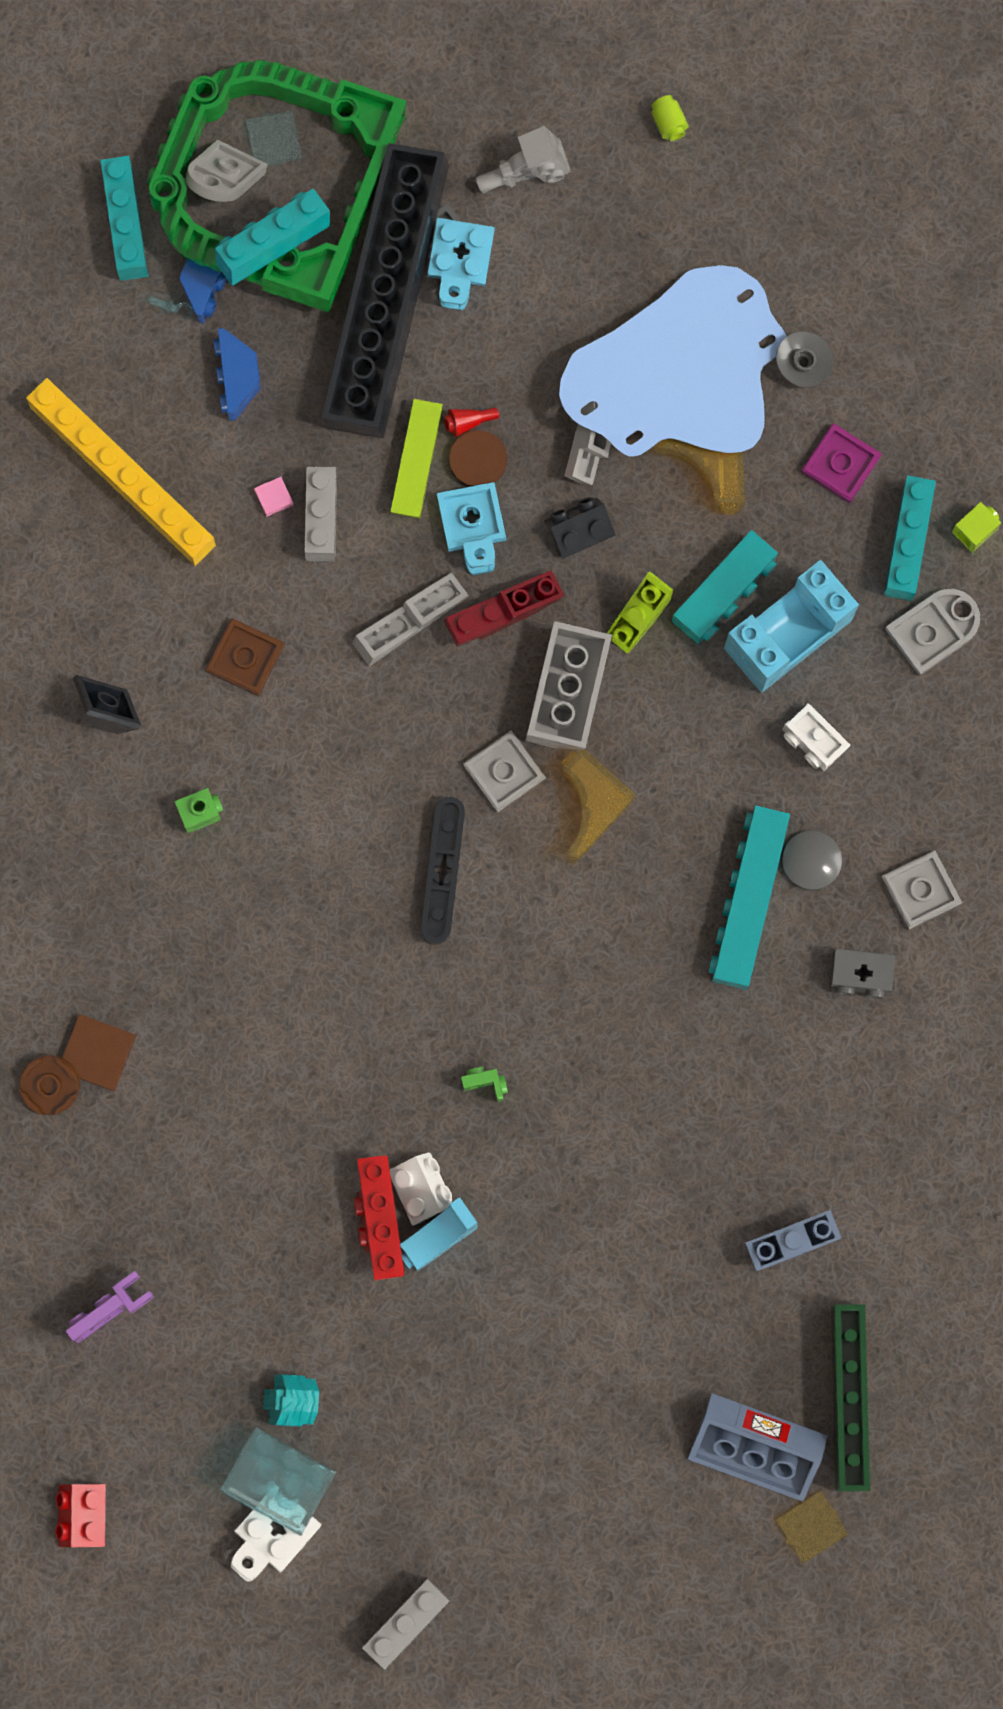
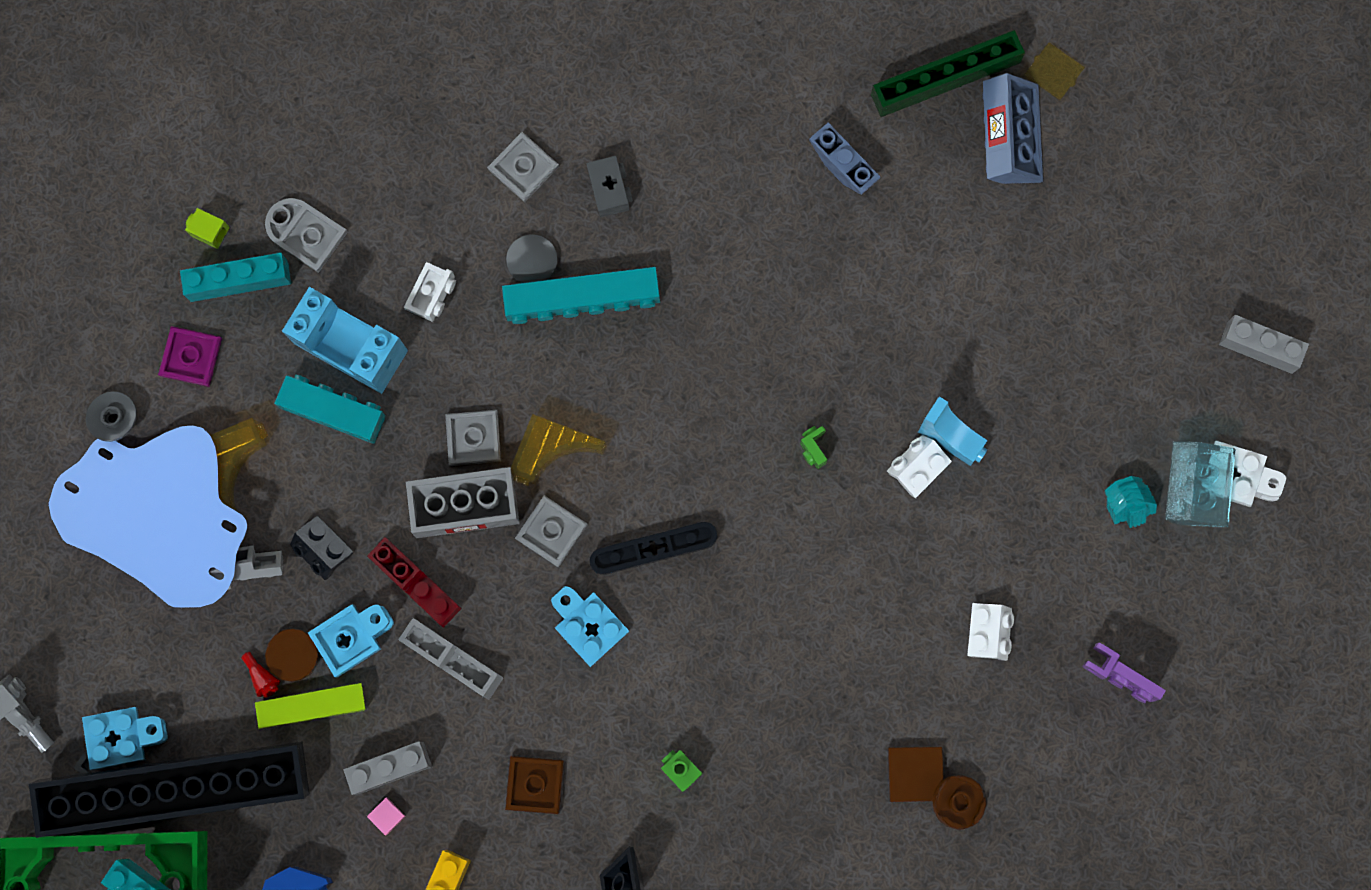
camera: 100 degrees left, 0 degrees up
(81, 1515) = (1291, 633): bracket -> none
(212, 1192) = (990, 631): none -> white bracket
(378, 1218) = (959, 487): red bracket -> none
(403, 766) = (591, 611): none -> medium azure plate
(637, 726) = (473, 437): none -> light grey tile
(640, 612) = (376, 468): lime slope -> none

